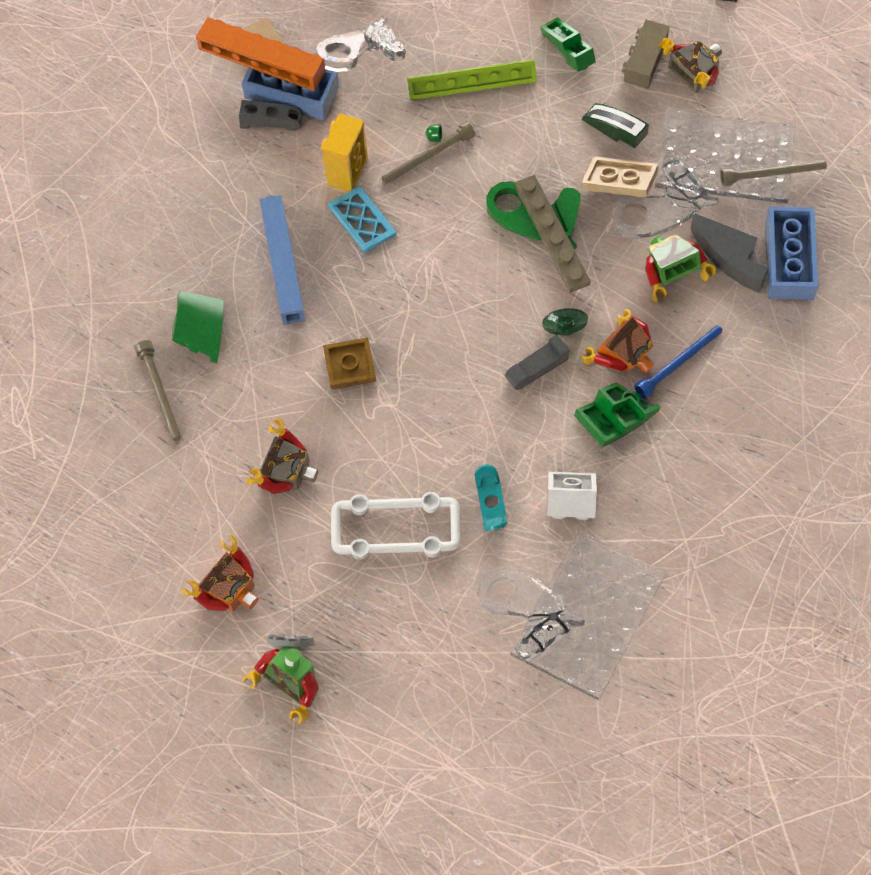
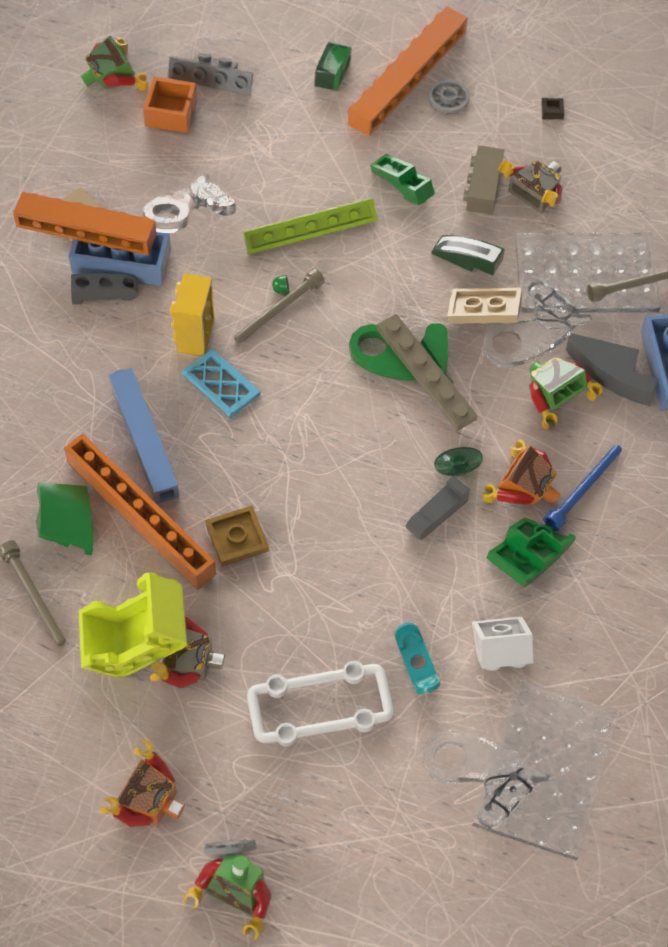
camera: 15 degrees left, 5 degrees down
(238, 439) = (136, 632): none -> neon yellow windscreen
(266, 329) = (140, 511): none -> orange brick

